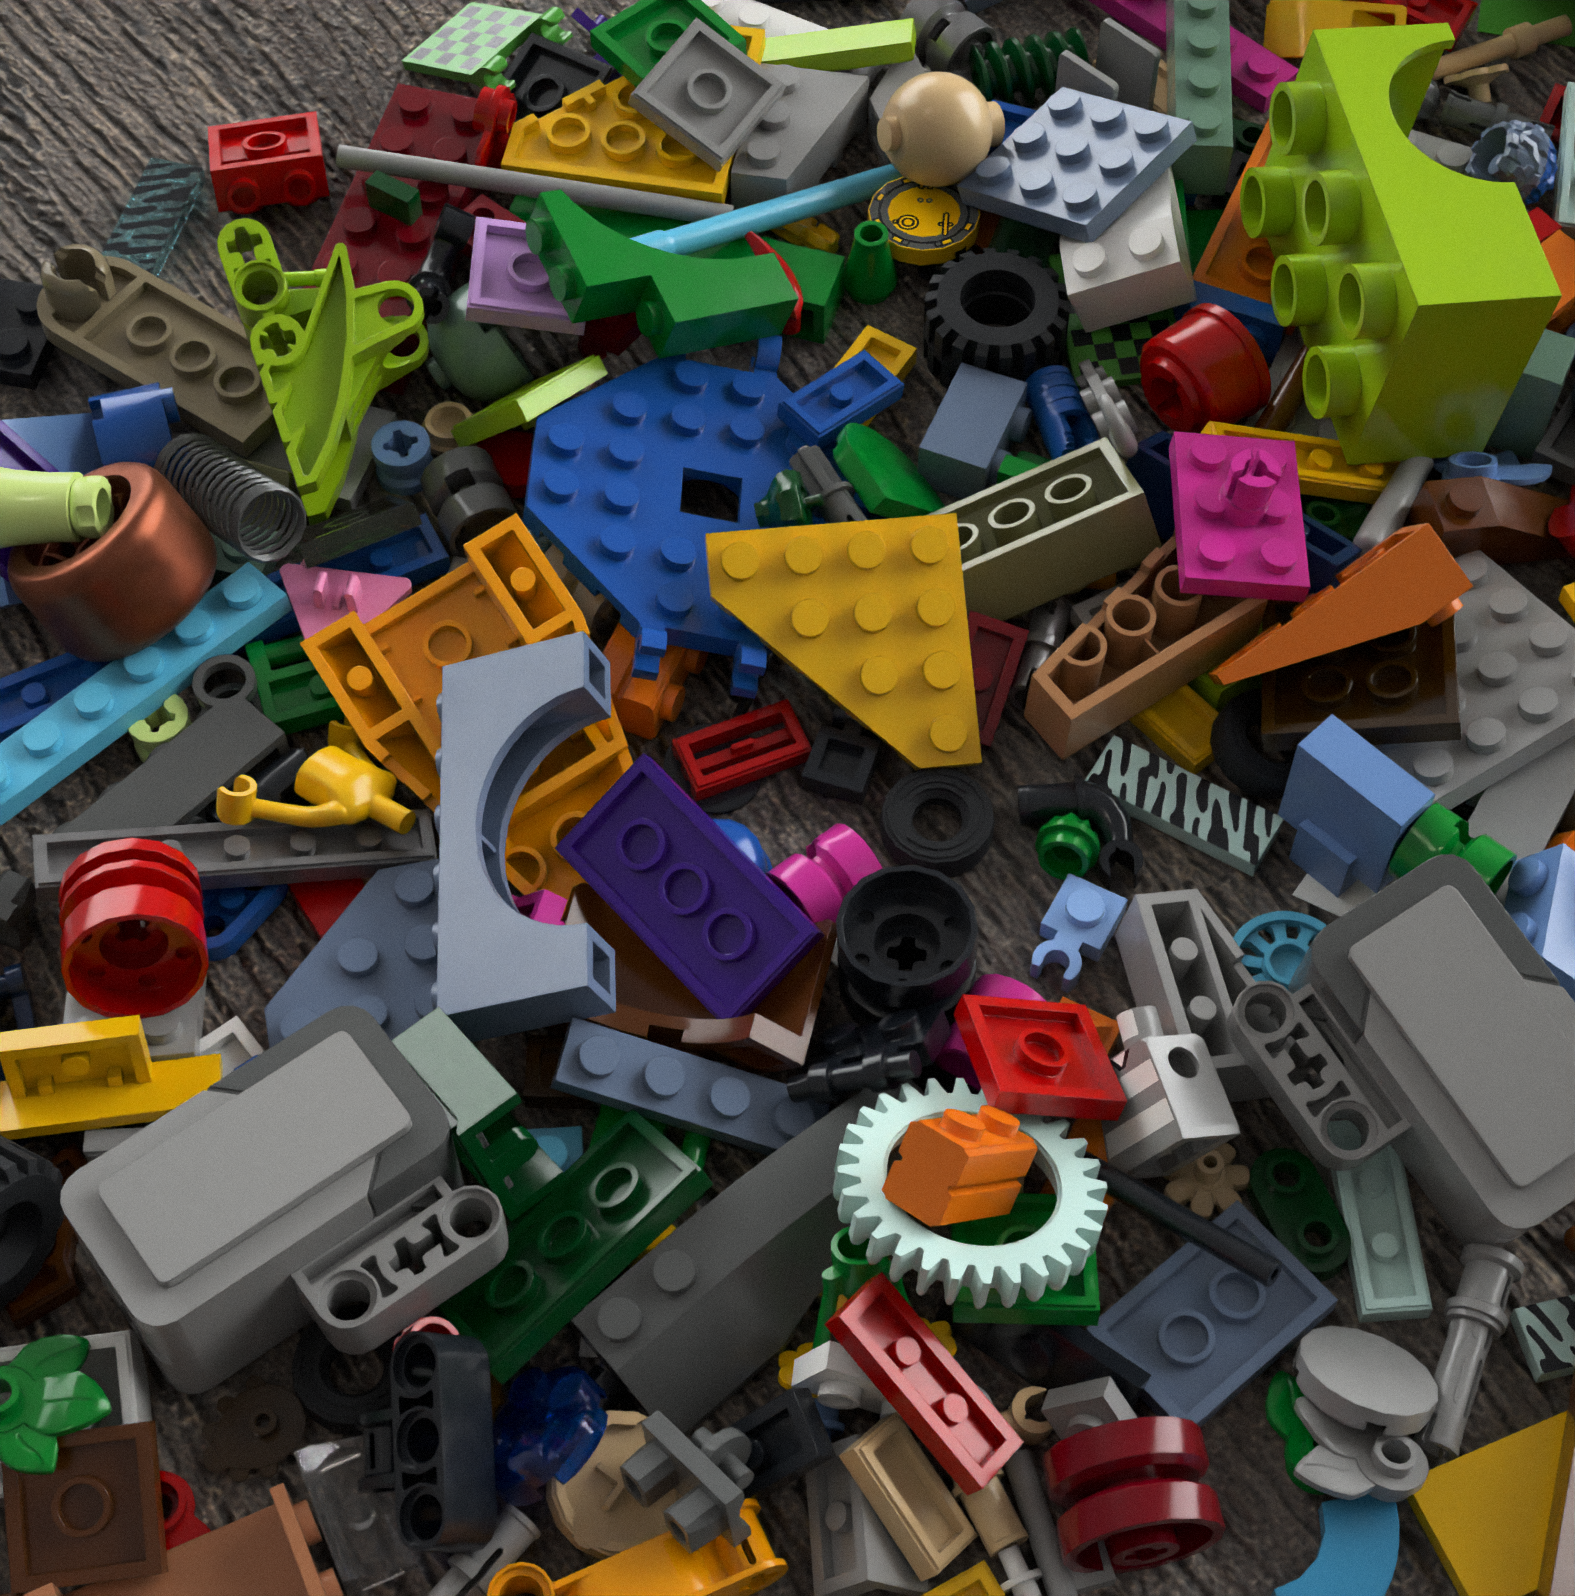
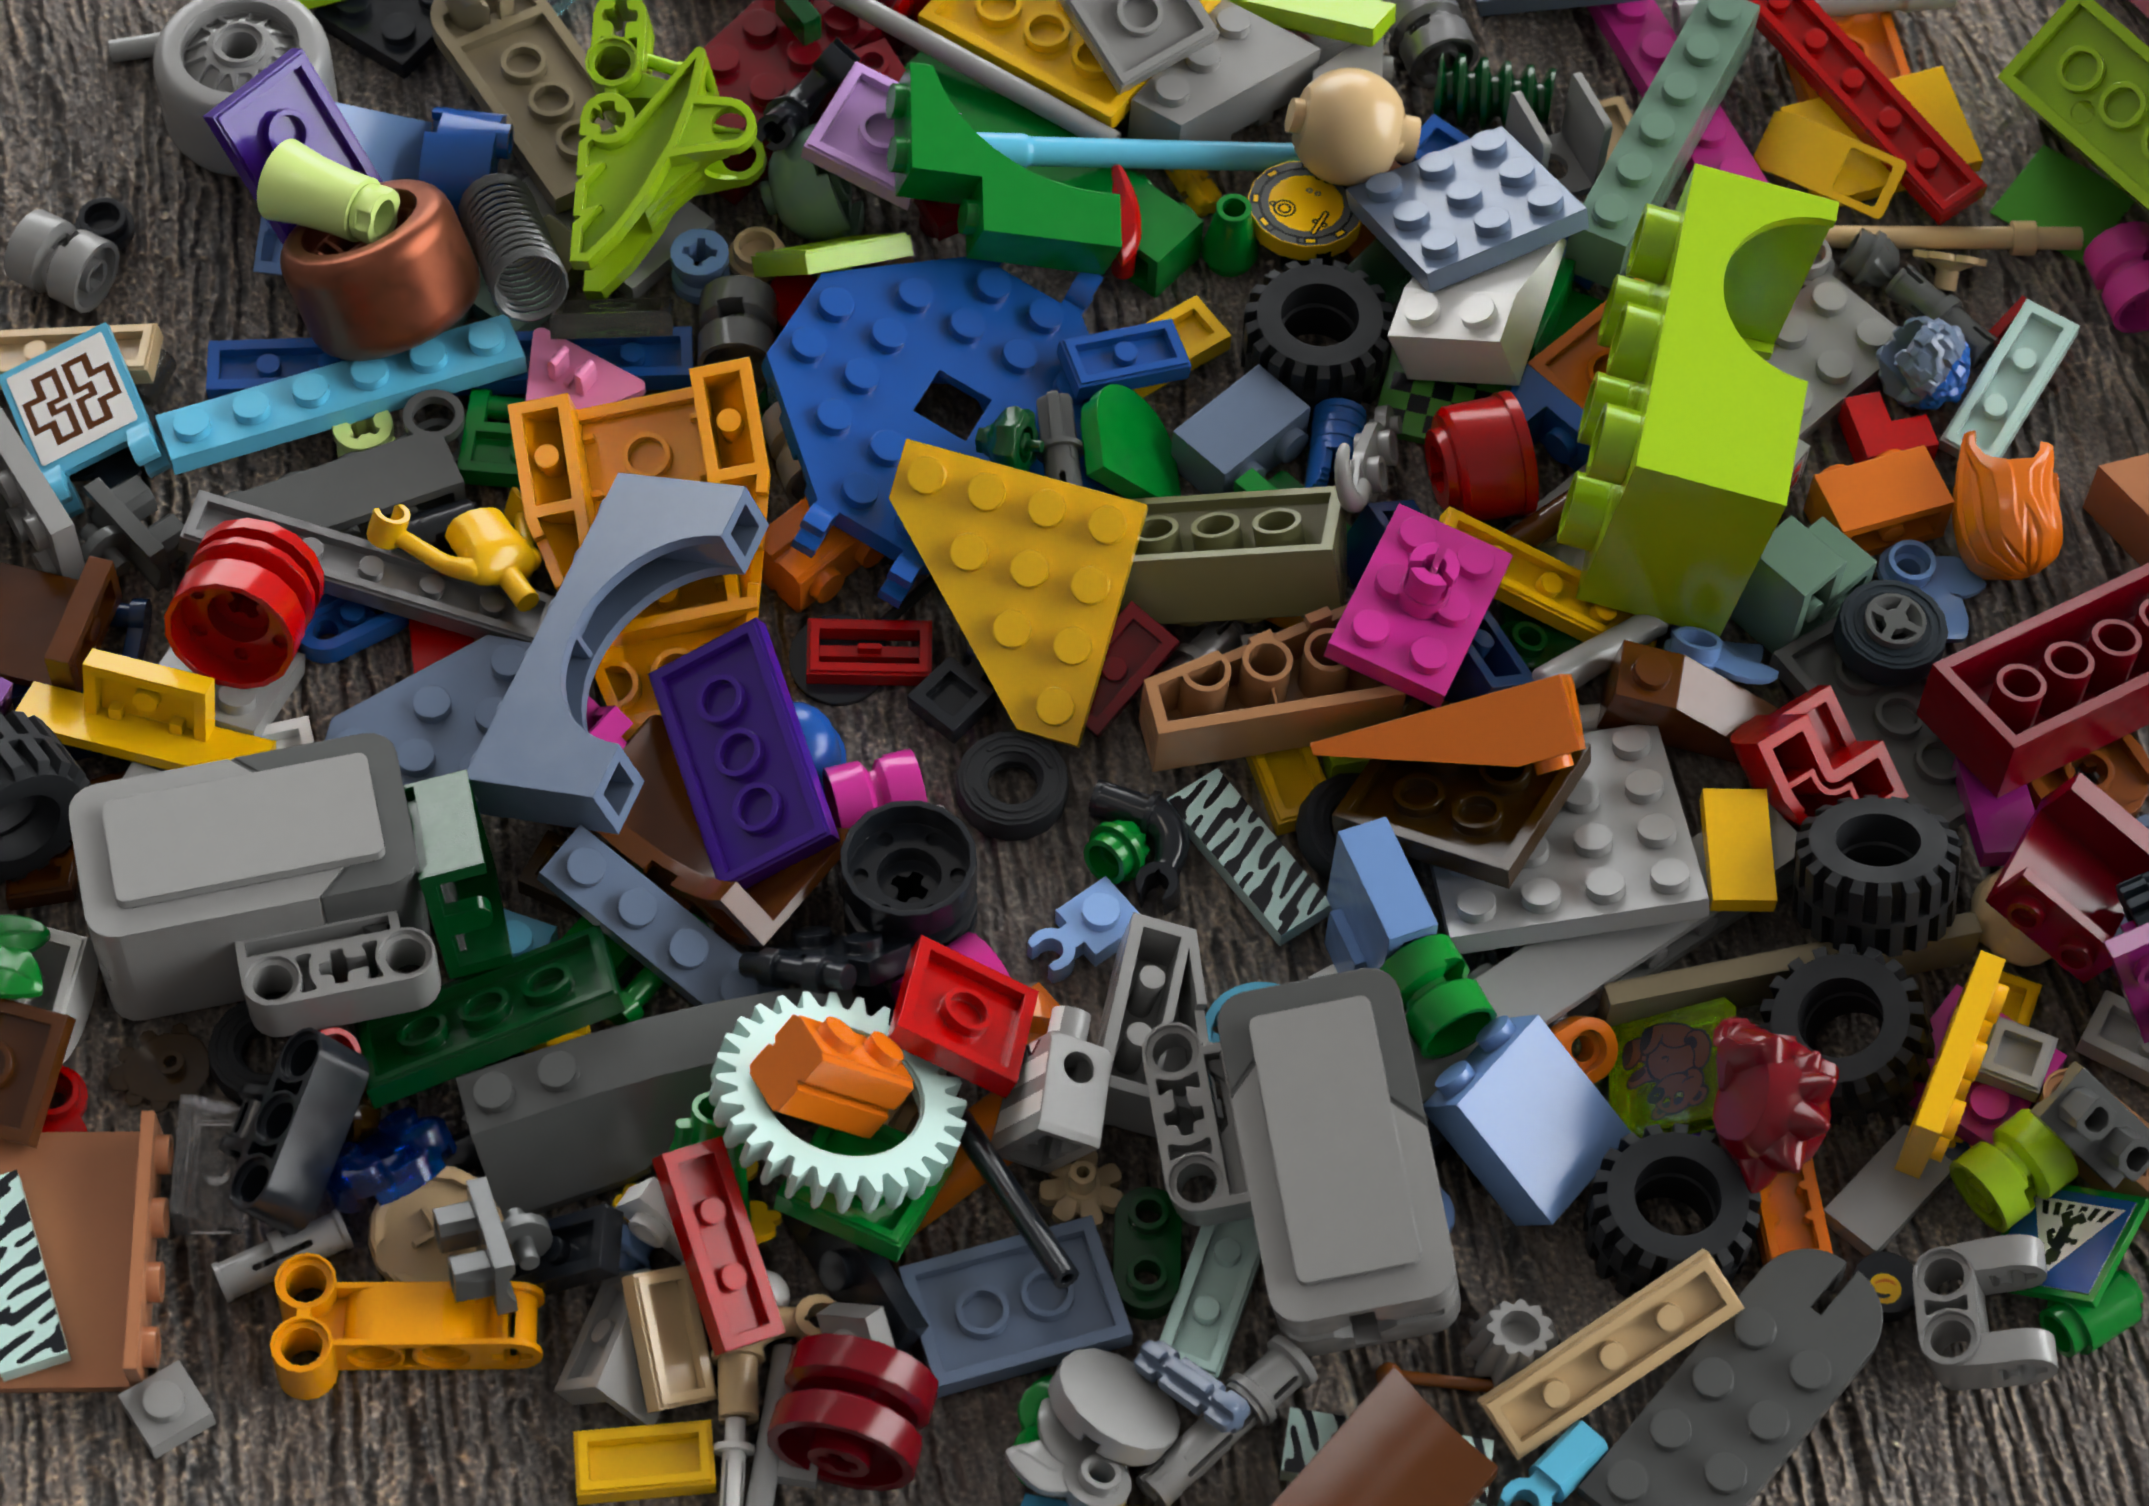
camera: 20 degrees right, 0 degrees up
(1425, 1328) = (1192, 1386): none -> sand blue axle

